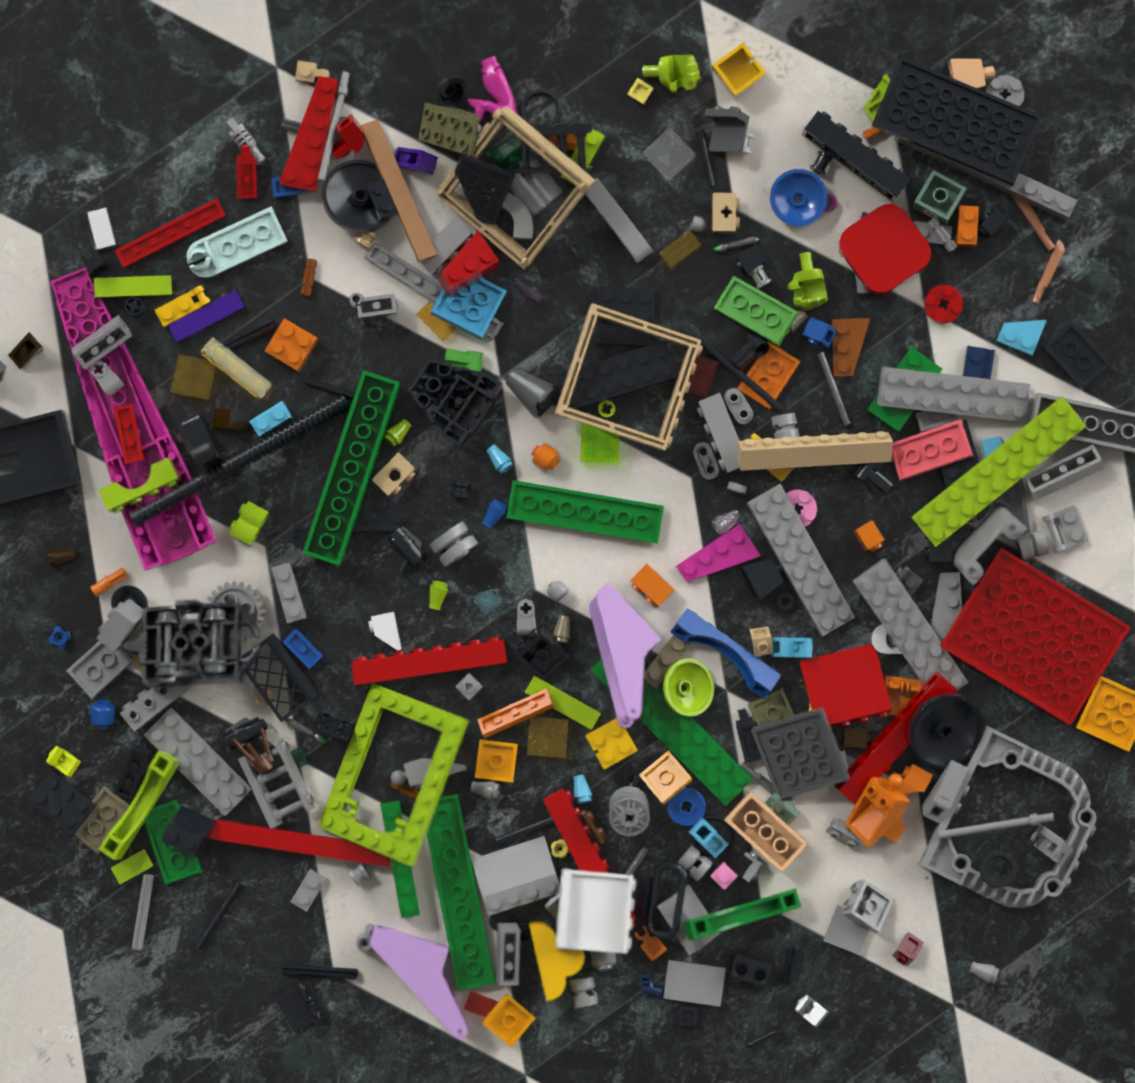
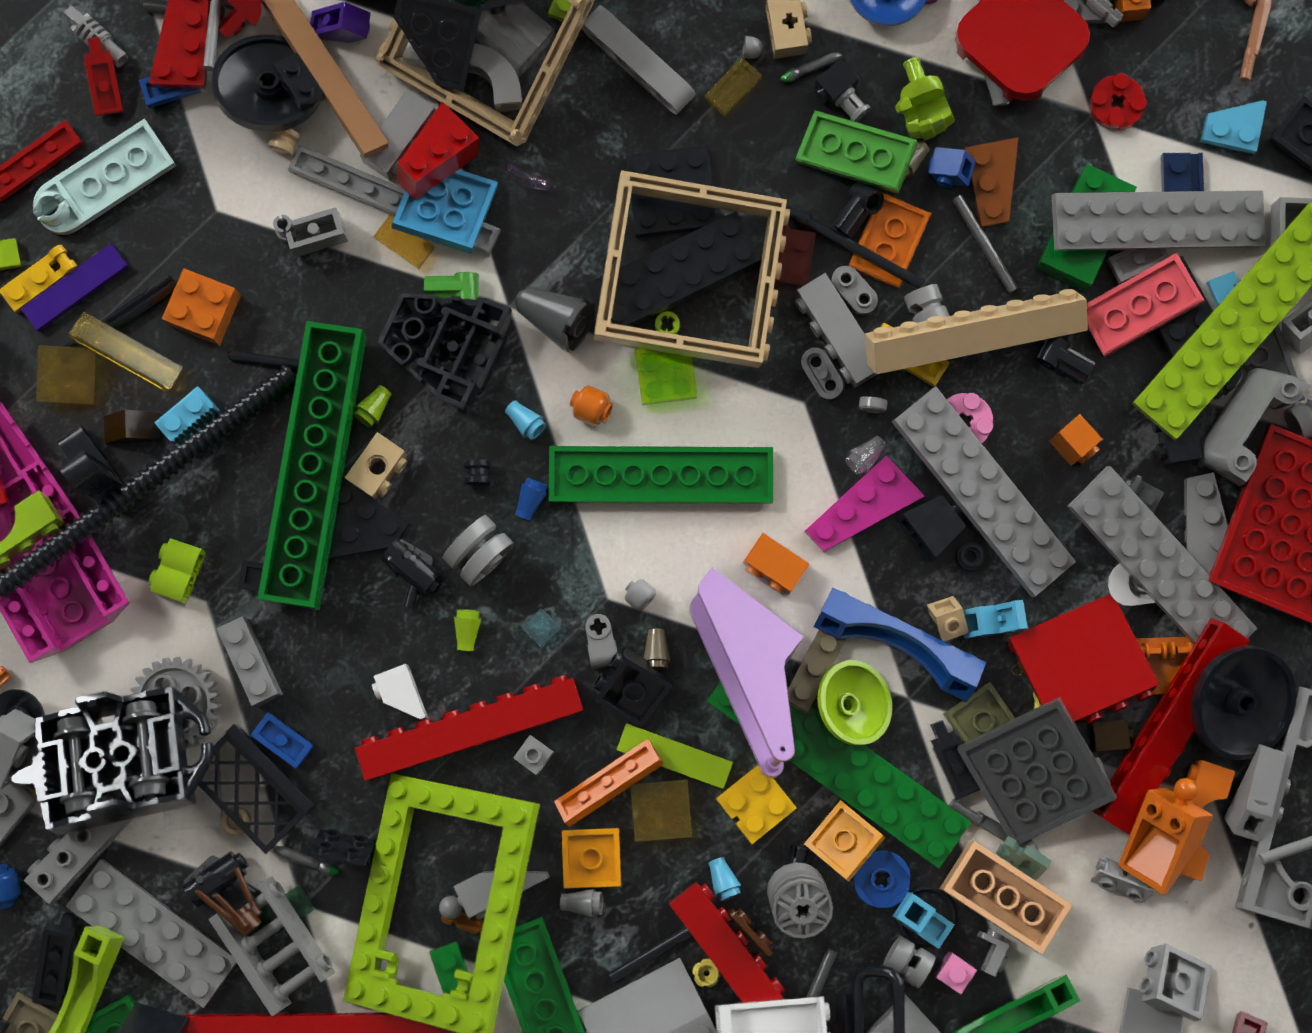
camera: 10 degrees left, 5 degrees down
(308, 277) = (213, 209): dark orange axle -> none

